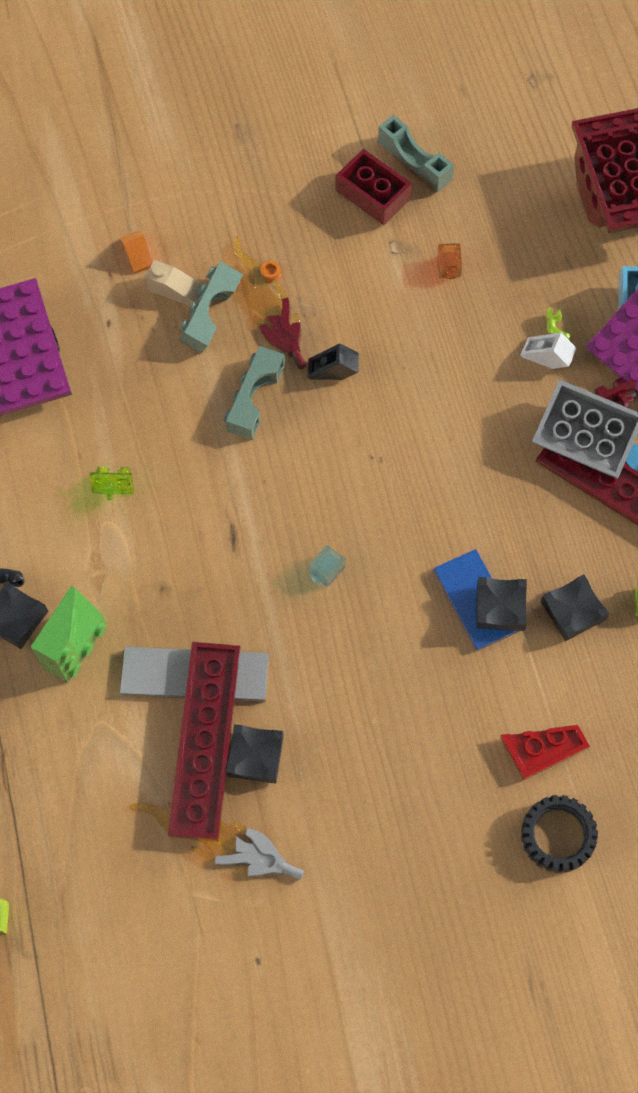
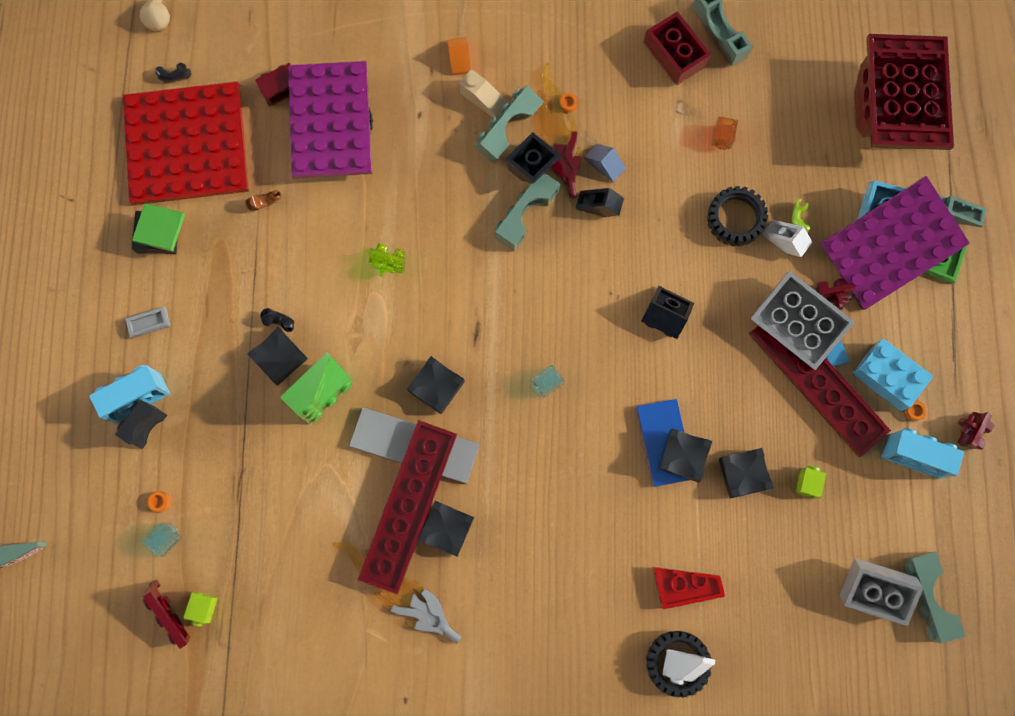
camera: 10 degrees right, 10 degrees up
(202, 601) = (436, 385): none -> black brick
(245, 336) = (531, 159): none -> black slope
(329, 321) = (605, 161): none -> sand blue slope
(439, 461) = (667, 312): none -> black slope
(493, 320) = (748, 197): none -> black tyre
(567, 831) = (685, 666): none -> white slope

